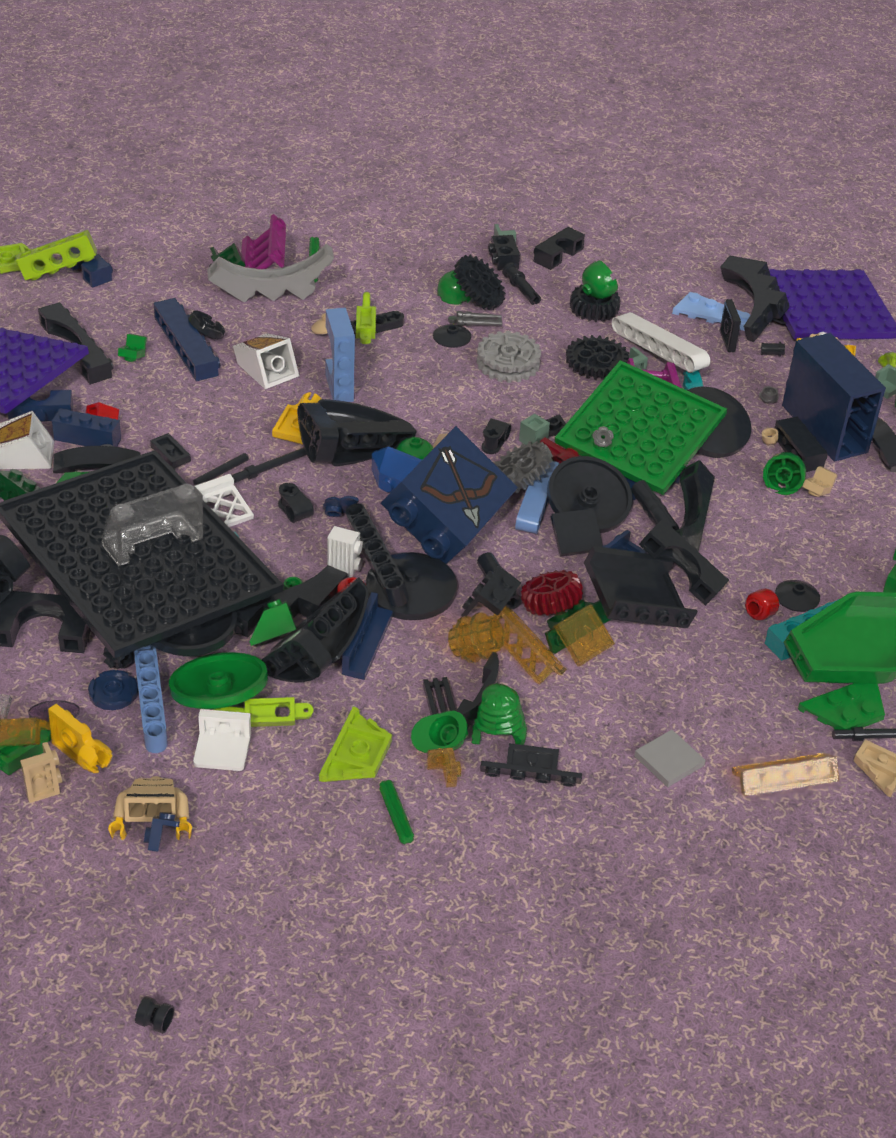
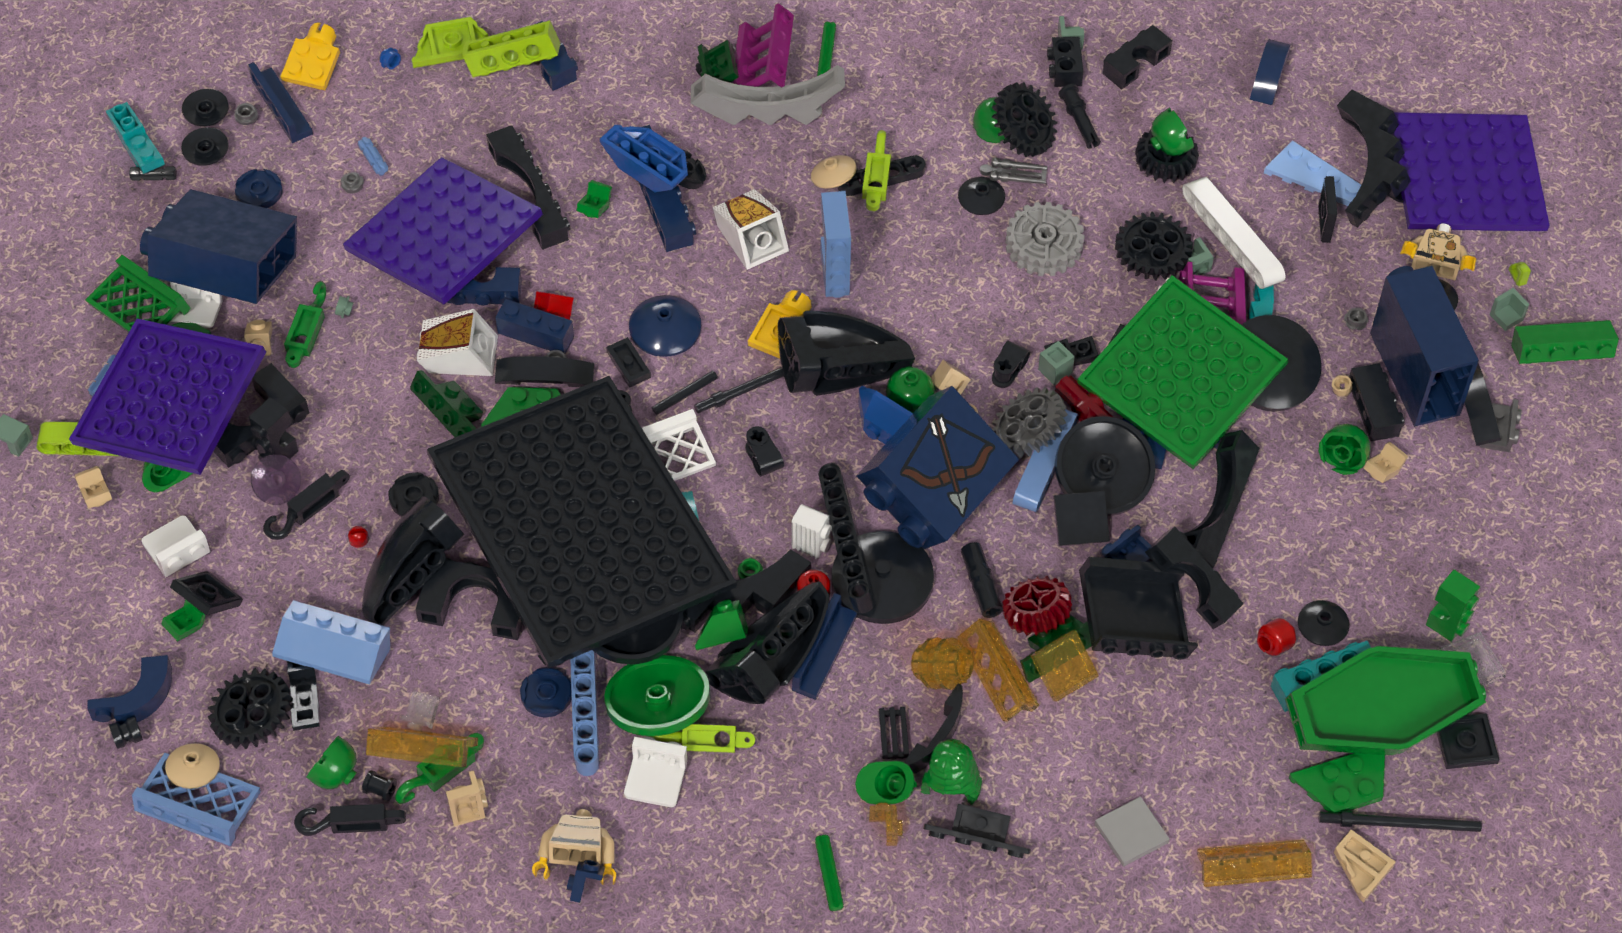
camera: 10 degrees right, 15 degrees up
(41, 709) = (482, 720): clear purple dish -> none
(76, 740) = (505, 763): yellow plate -> none
(139, 520) = (628, 482): clear windscreen -> none
(172, 310) = (646, 156): none -> blue wedge
(199, 427) = (667, 334): none -> dark blue dish
(336, 506) = (810, 461): dark blue plate -> none
(357, 750) = (797, 793): lime wing -> none
(494, 593) = (969, 603): black bracket -> none
(608, 436) = (1132, 394): flat silver plate -> none
(652, 504) = (1179, 490): black axle -> none
(664, 250) = (1270, 71): none -> dark blue arch
(773, 349) = (1377, 243): black pin -> none

